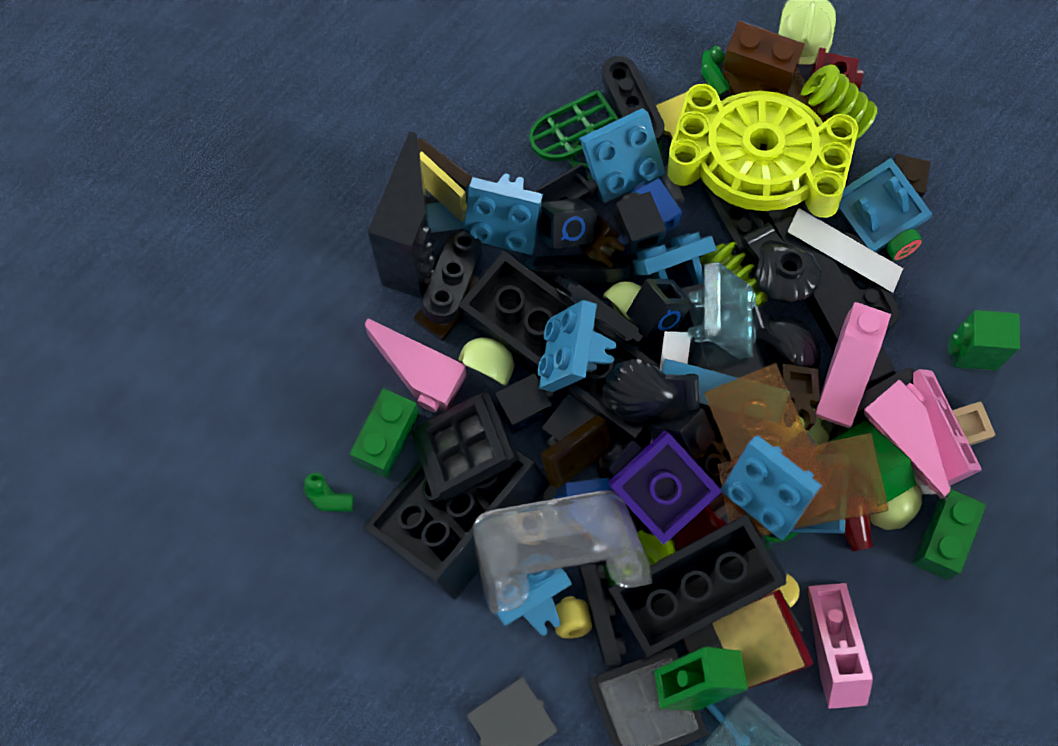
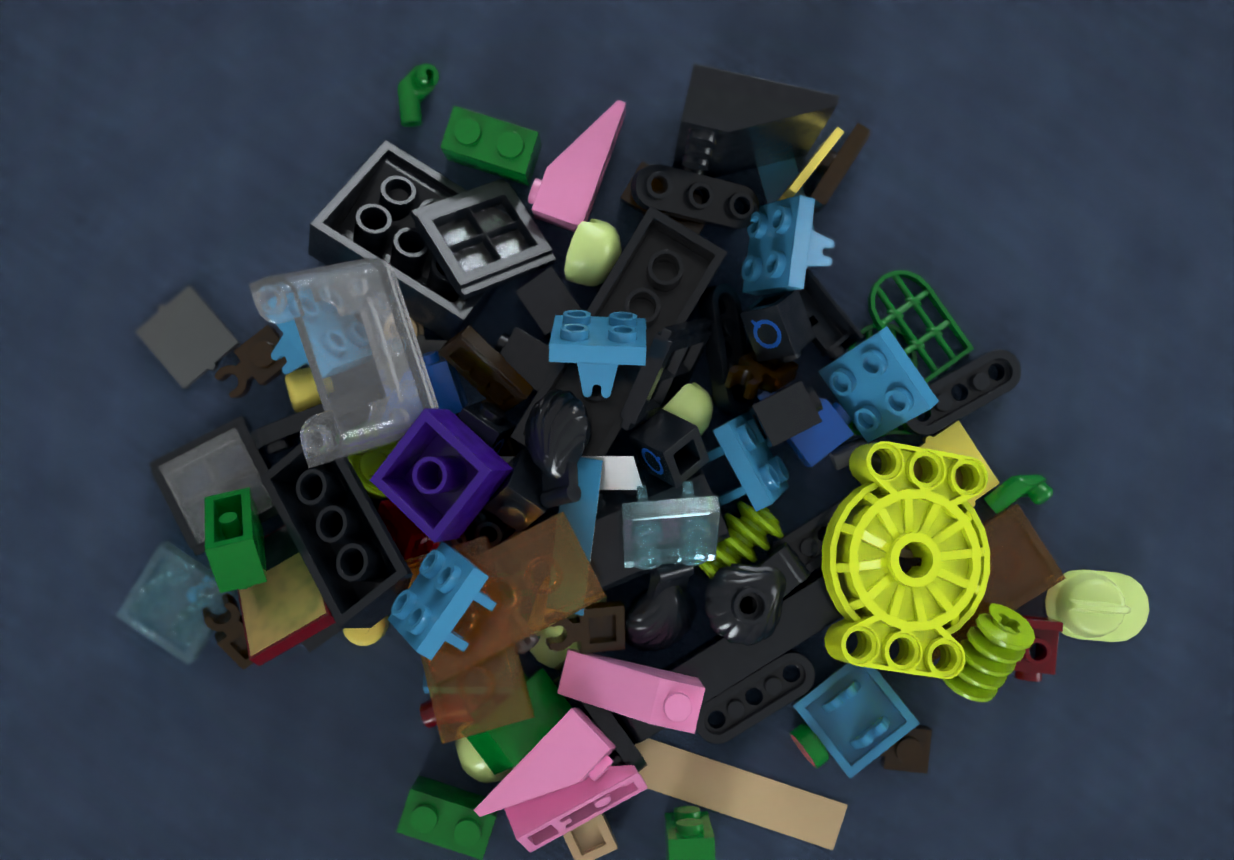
camera: 80 degrees right, 15 degrees up
(539, 656) = (255, 362): none -> dark brown plate
(763, 56) = (1040, 550): reddish brown brick -> none
(780, 697) = (230, 631): none -> dark brown plate
(839, 647) = (309, 695): bright pink slope -> none
(845, 250) = (789, 672): white sticker -> none
(941, 301) = (741, 794): none -> tan sticker

